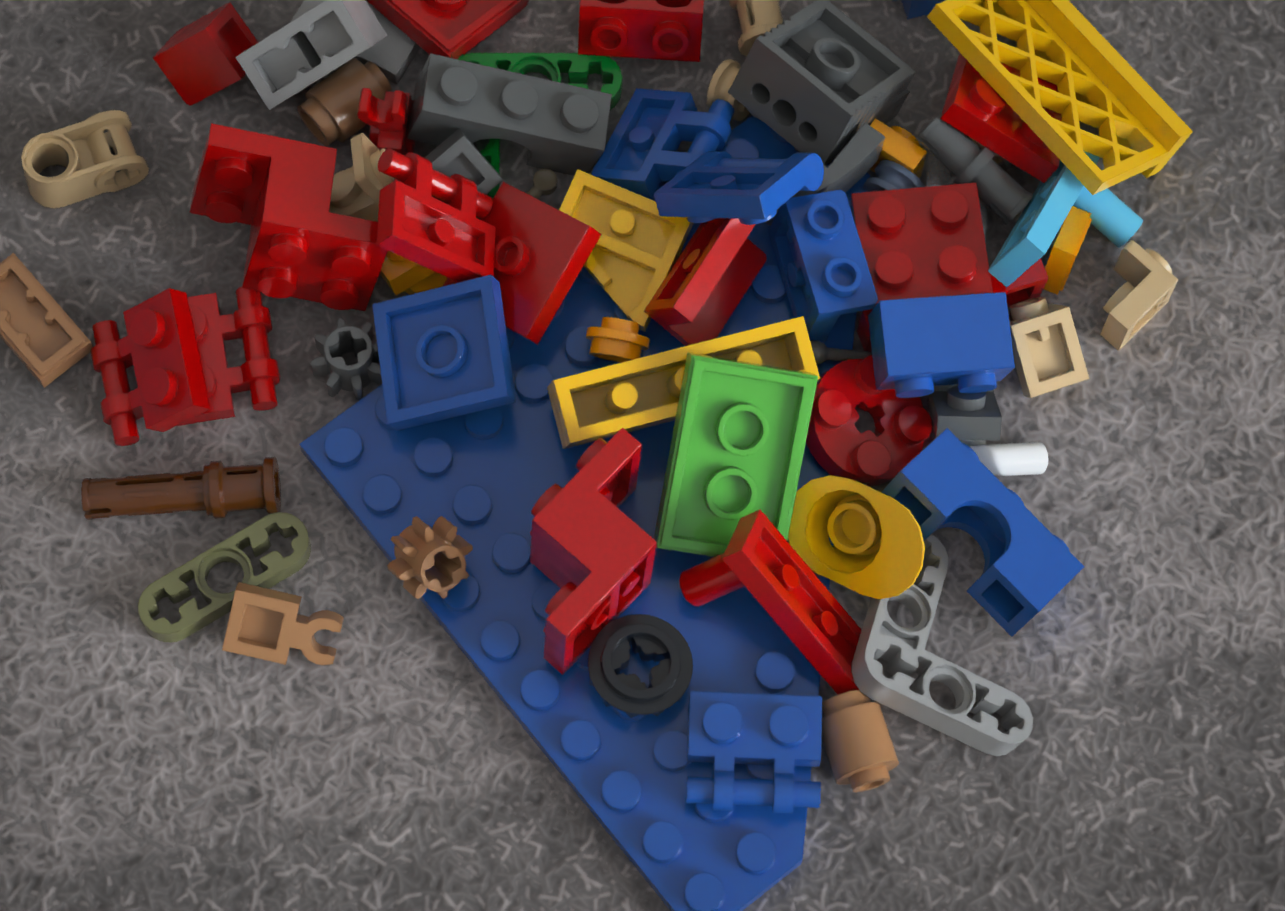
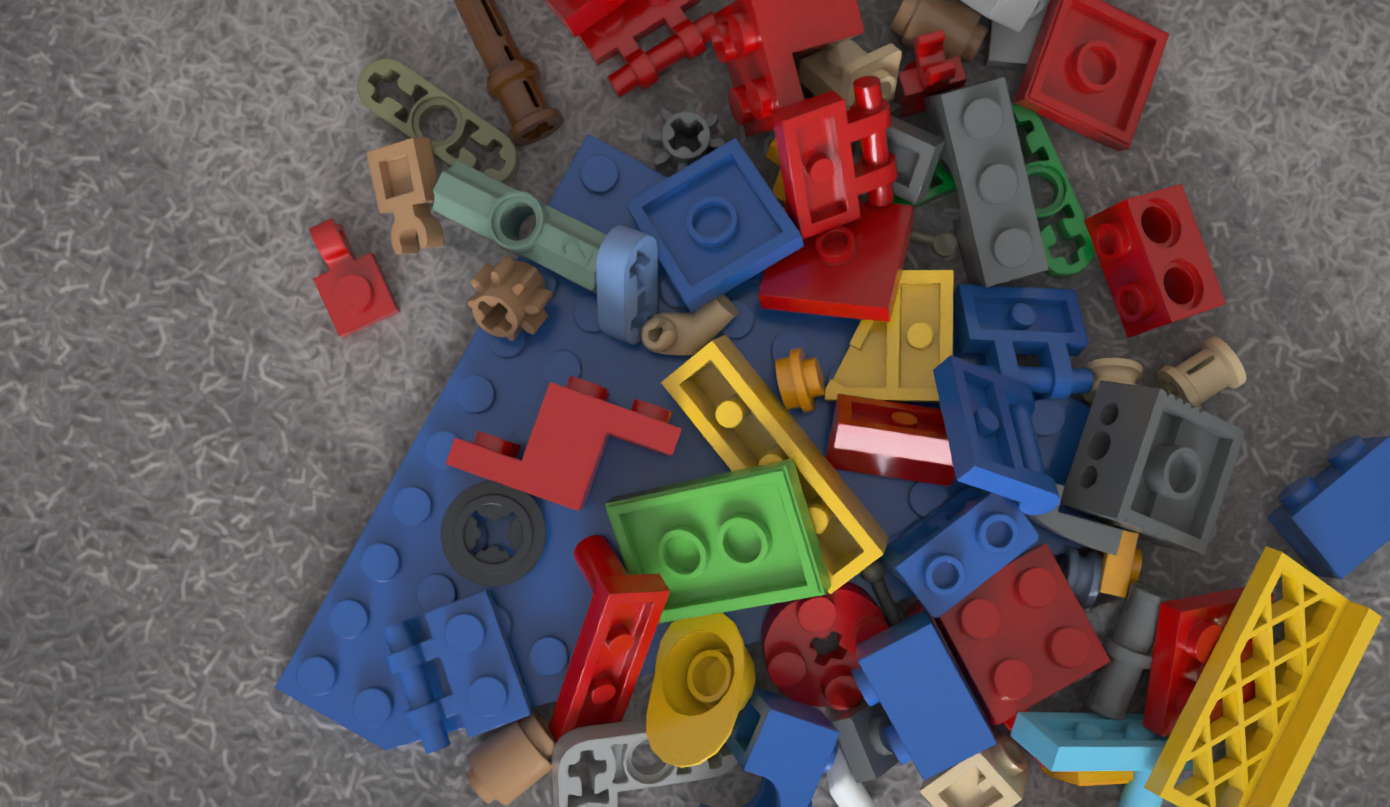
camera: 70 degrees right, 15 degrees up
(337, 547) = (498, 212): none -> sand green piece
(347, 719) = (353, 288): none -> red plate
(465, 445) = (626, 282): none -> medium blue beam
(529, 420) = (687, 332): none -> tan arm

